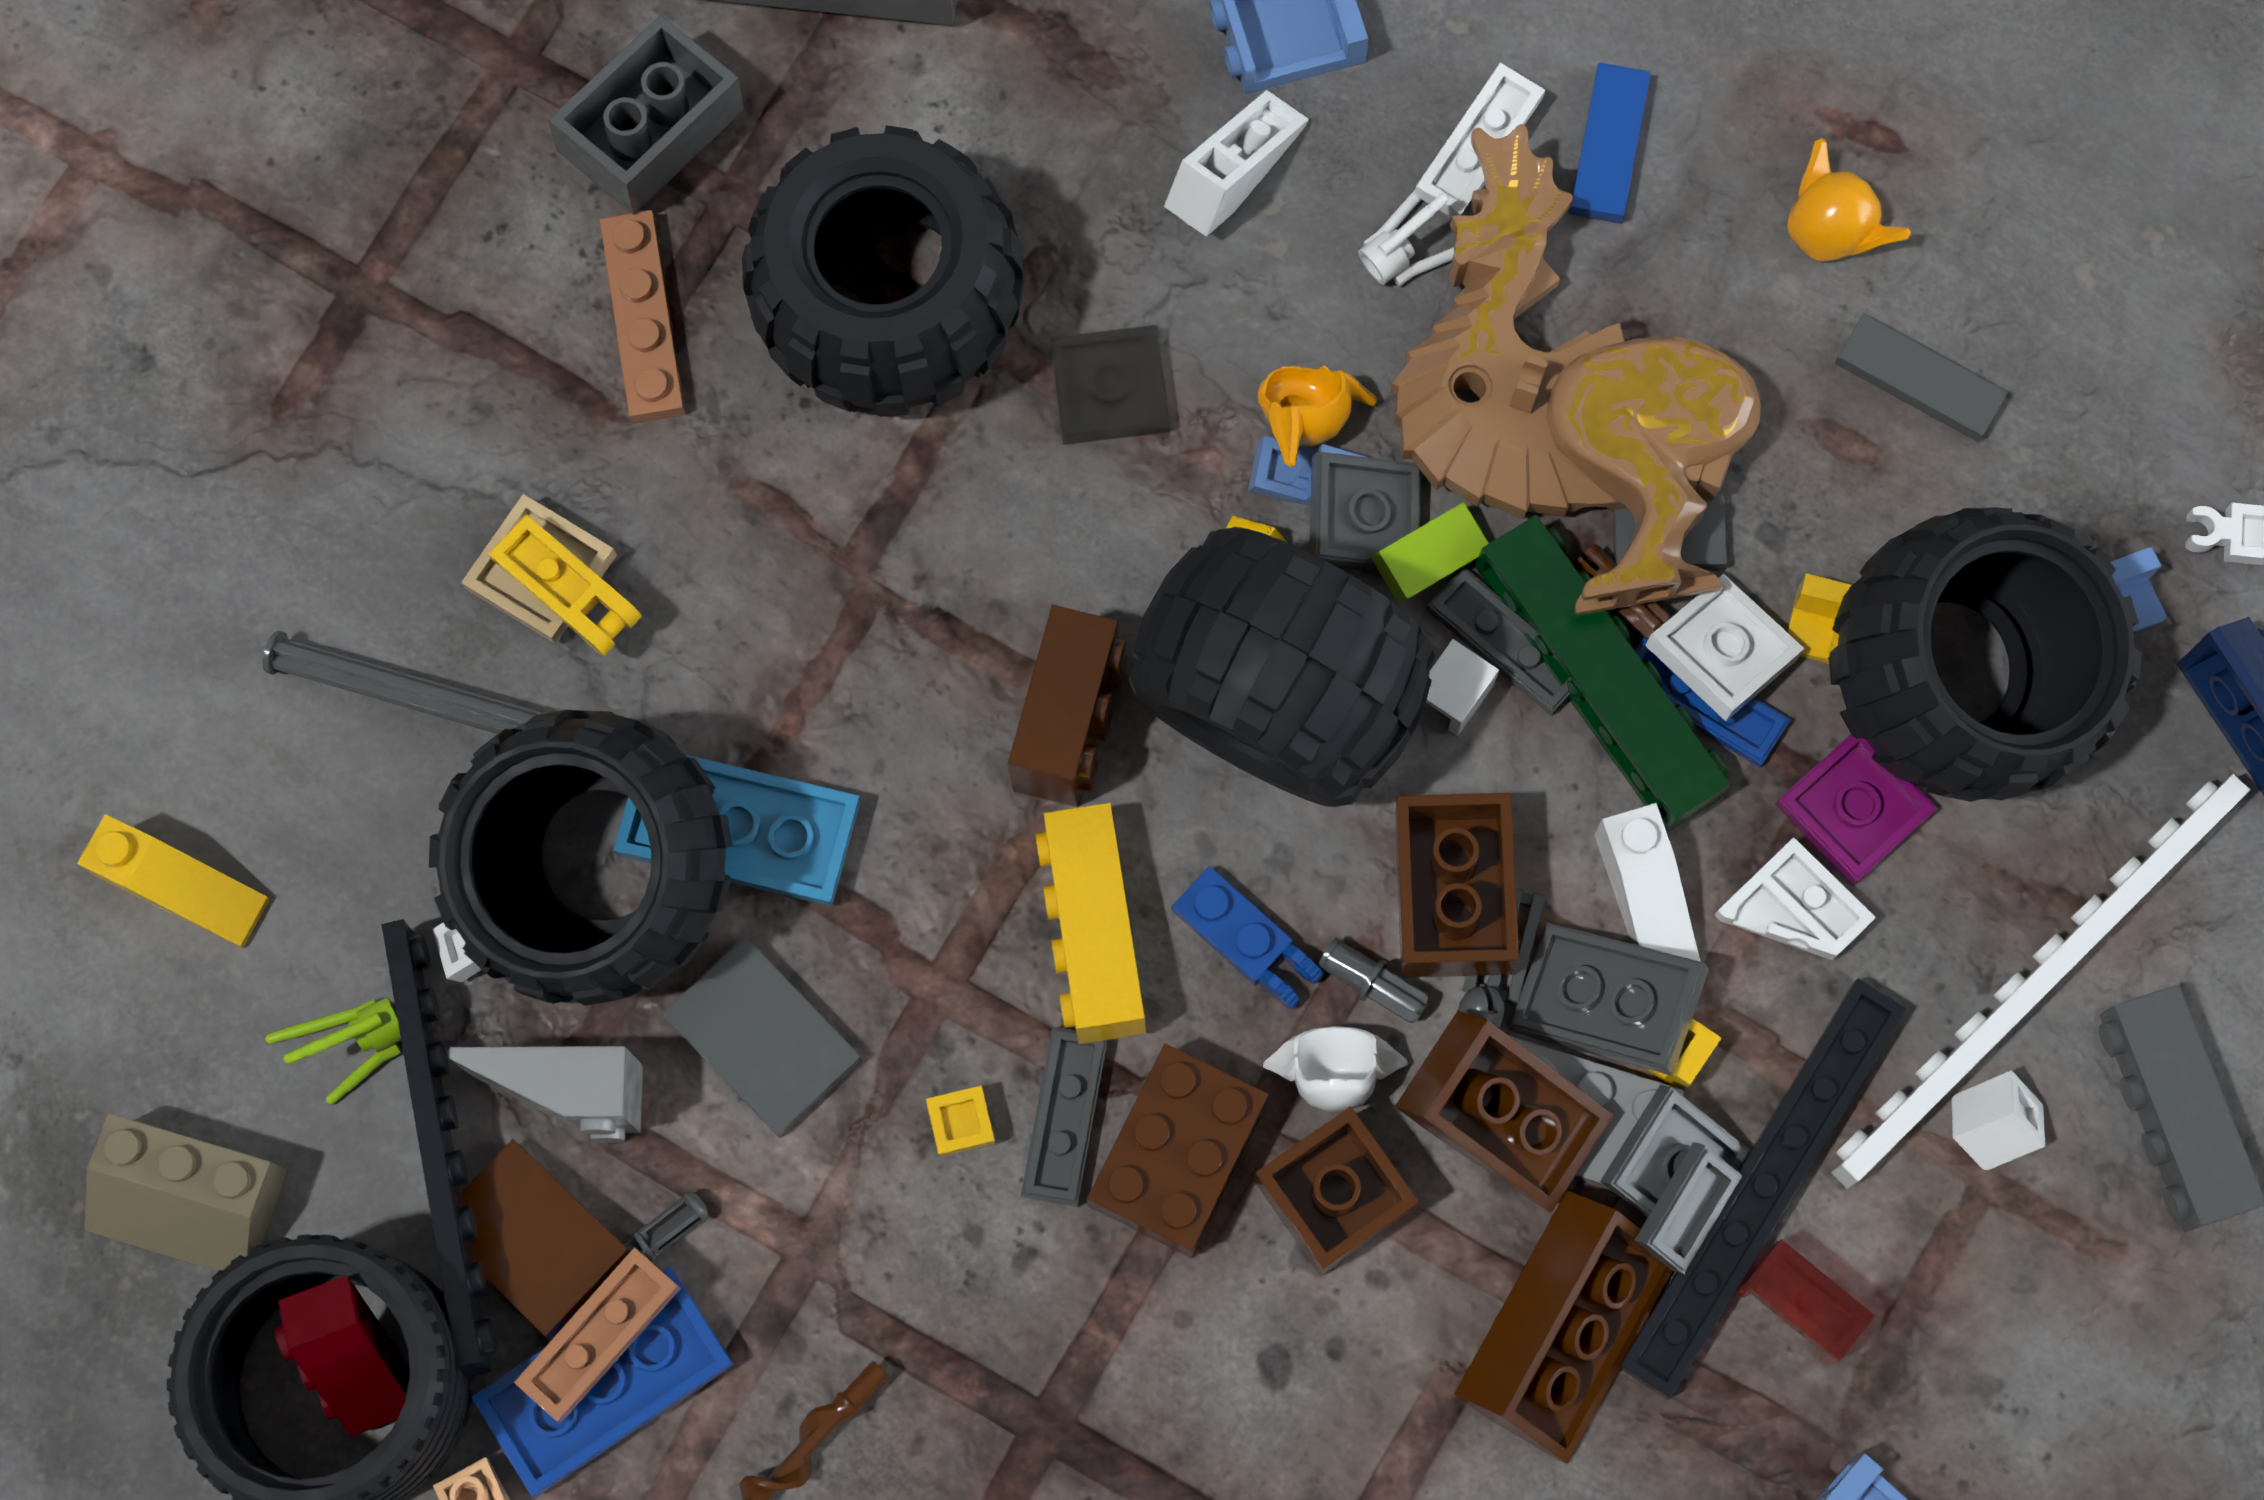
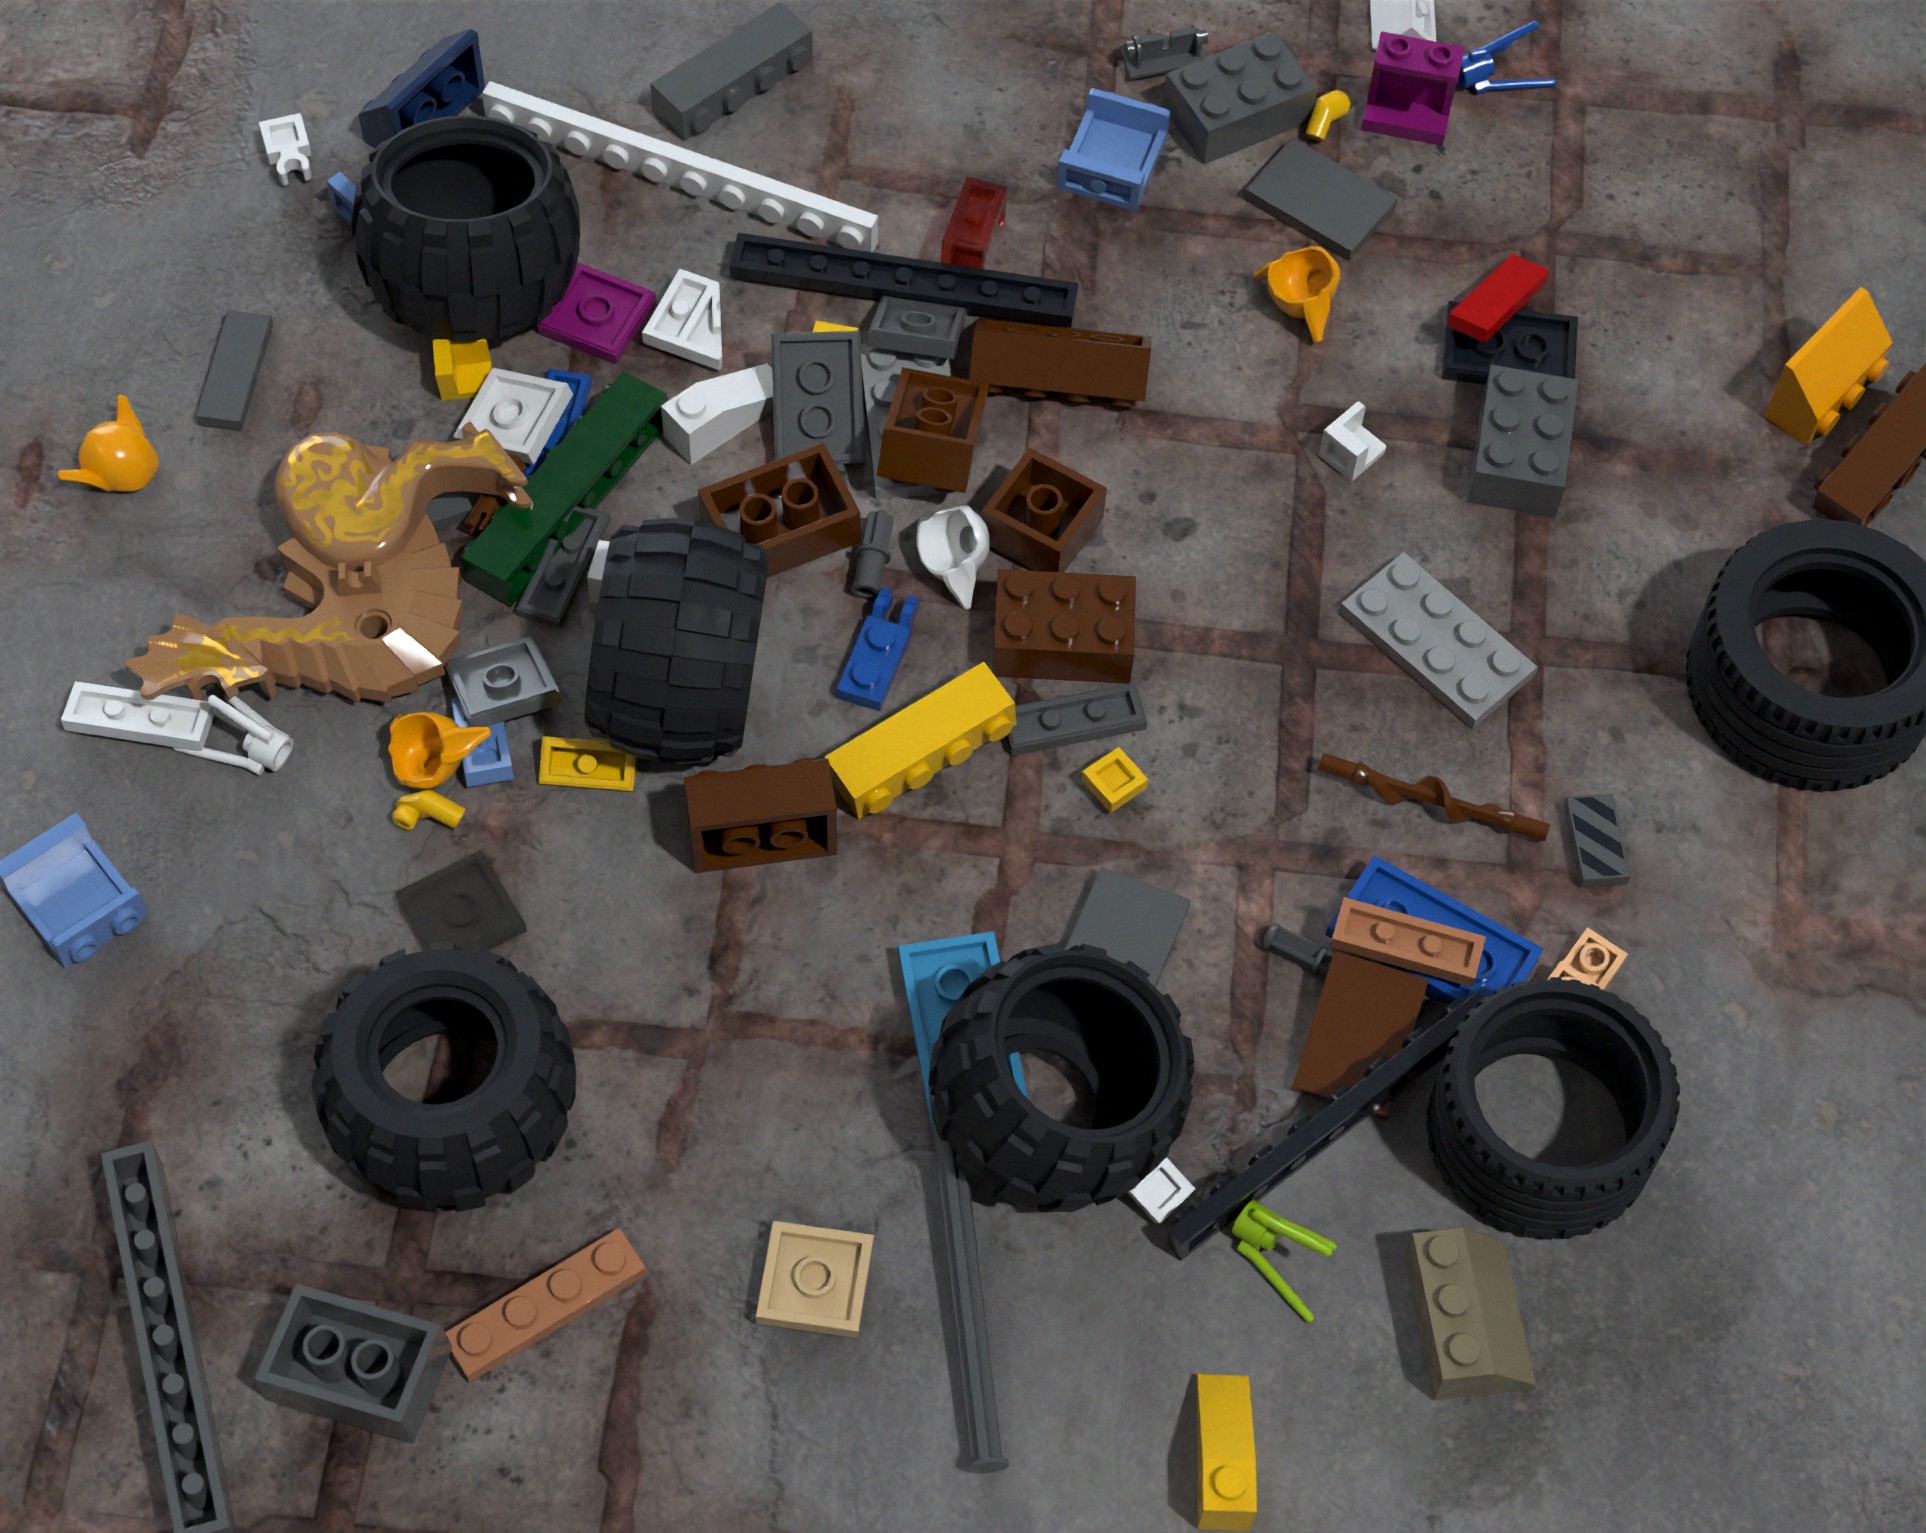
camera: 120 degrees left, 15 degrees down
(344, 1355) = (1526, 1093): dark red brick -> none
(563, 584) = (826, 1235): yellow plate -> none
(581, 1086) = (1231, 1037): light grey slope -> none
(1233, 162) = (226, 883): white slope -> none
(1244, 392) = (425, 805): none -> yellow arm
(1430, 552) = (517, 626): lime tile -> none
(1484, 1004) = (862, 479): dark grey hinge -> none
(1610, 143) = (99, 630): blue tile -> none
(1688, 1208) = (945, 305): dark grey tile -> none
(1998, 1121) = (791, 161): white panel -> none

